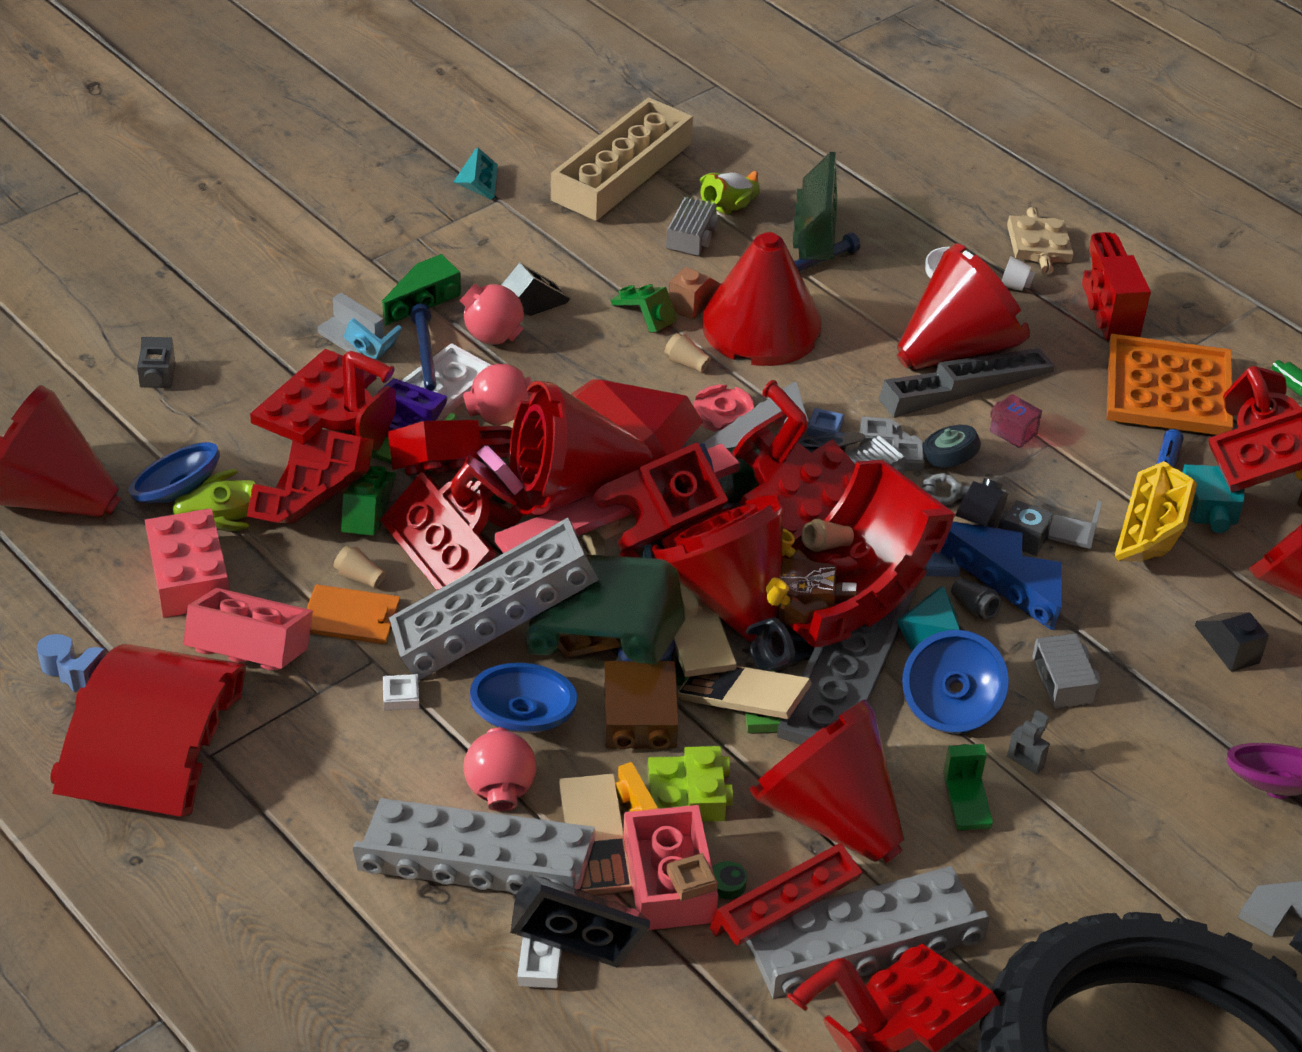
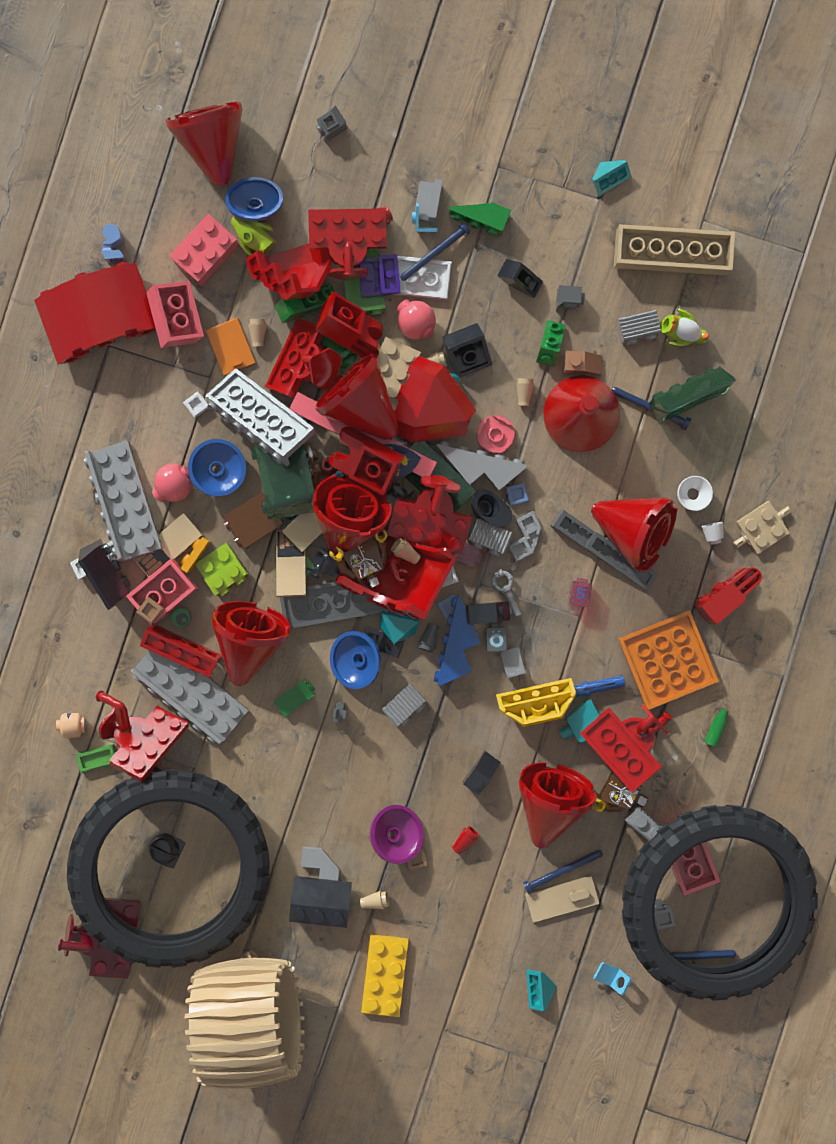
camera: 65 degrees right, 45 degrees up
(492, 313) = (478, 272): coral brick -> none
(500, 469) = (340, 366): bright pink tile -> none
(580, 362) = (467, 350): none -> black slope
(601, 262) = (569, 297): none -> dark grey window
(951, 445) = (535, 571): black wheel -> none

